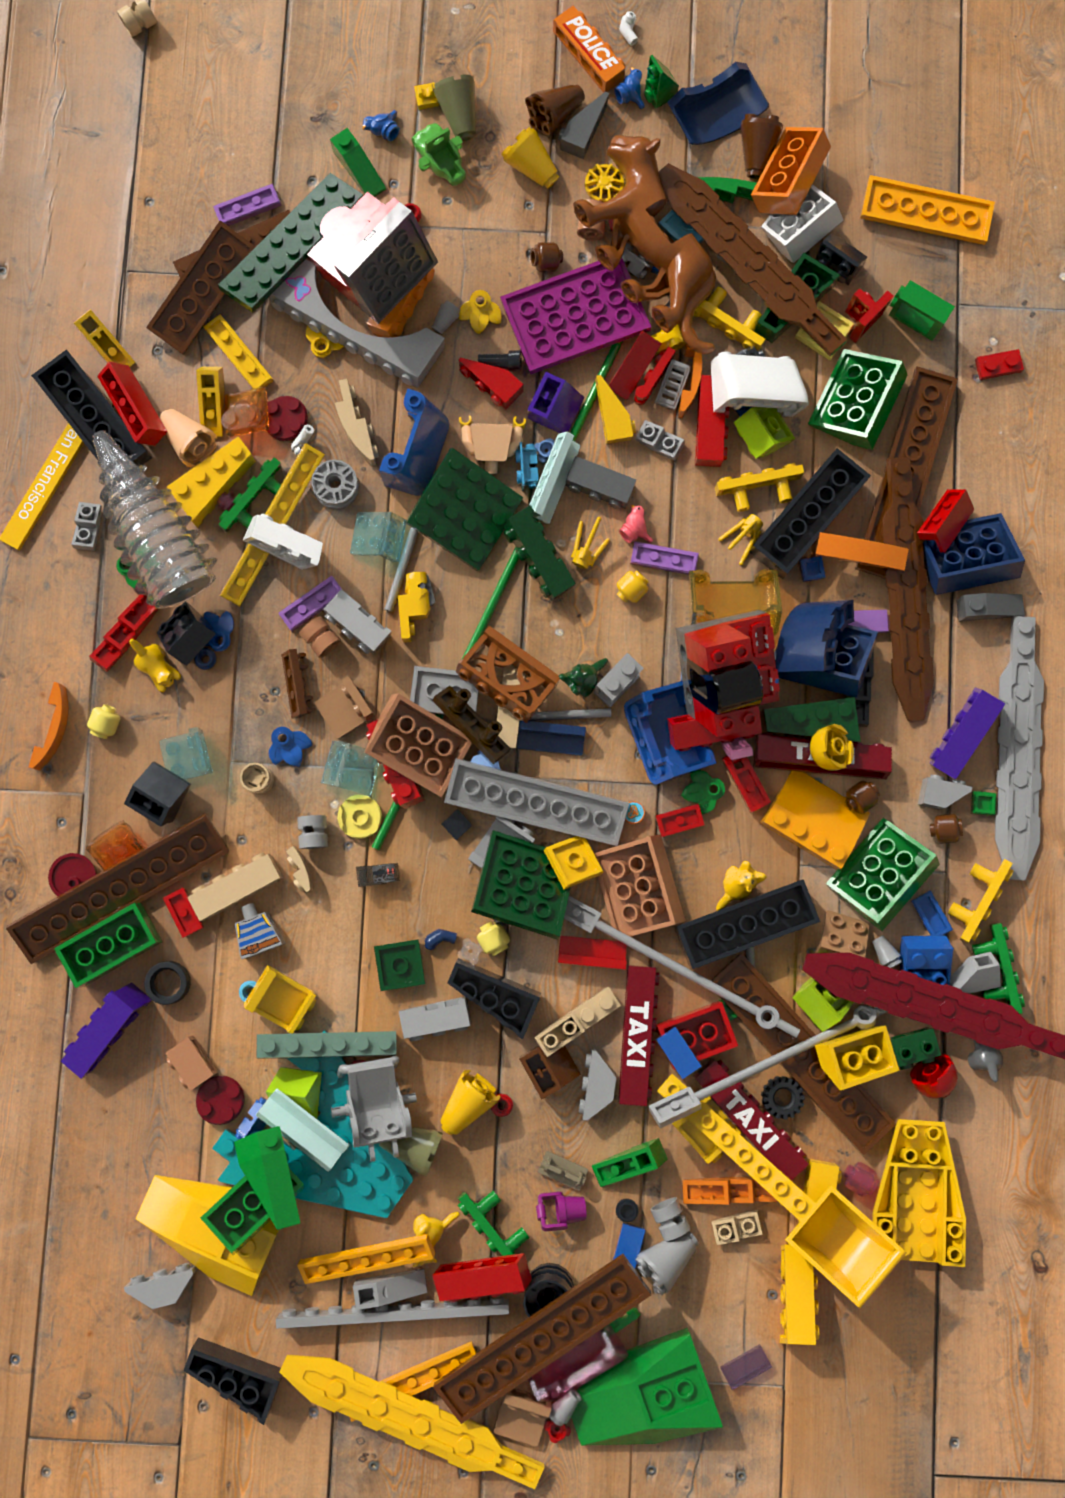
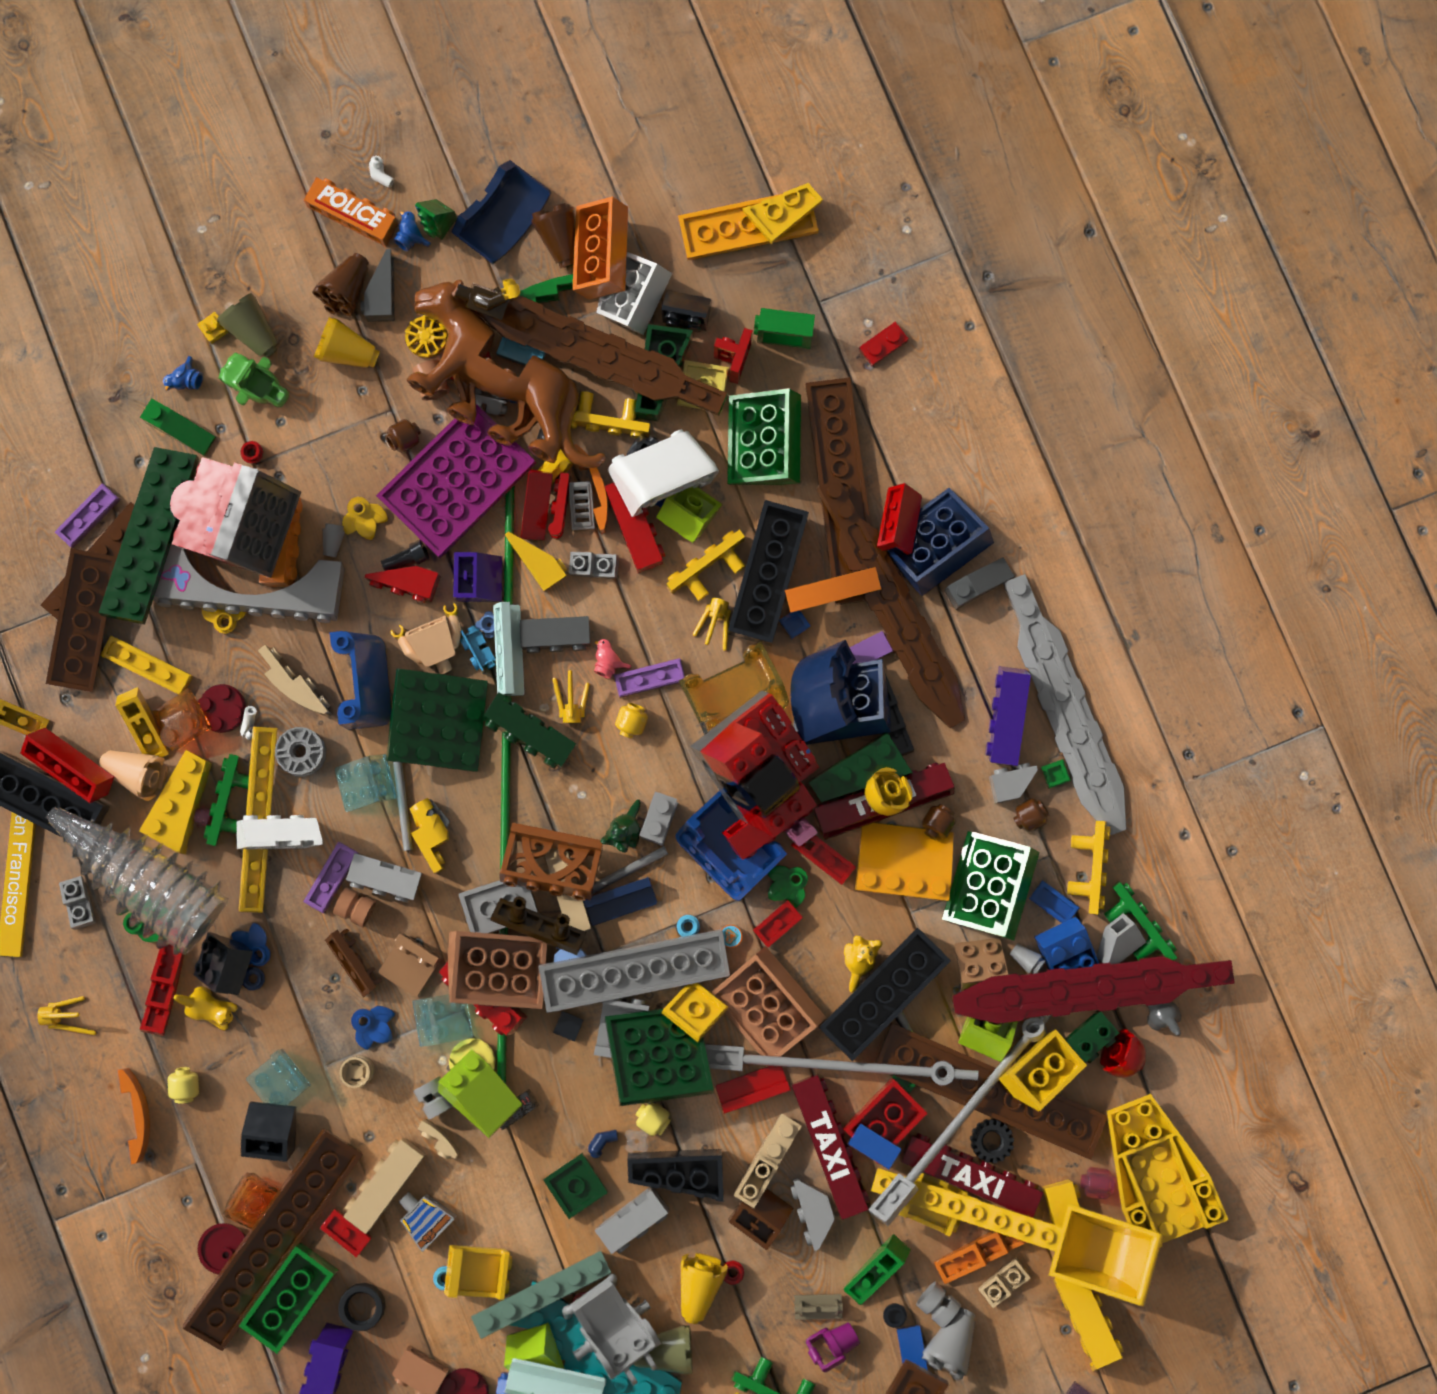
camera: 25 degrees left, 0 degrees up
(21, 611) = (52, 1016): none -> yellow plant
(353, 844) = (479, 1093): none -> lime slope
(600, 779) = (688, 918): none -> medium azure plate
(674, 165) = (487, 300): none -> dark brown torso
(963, 211) = (781, 213): none -> yellow wing

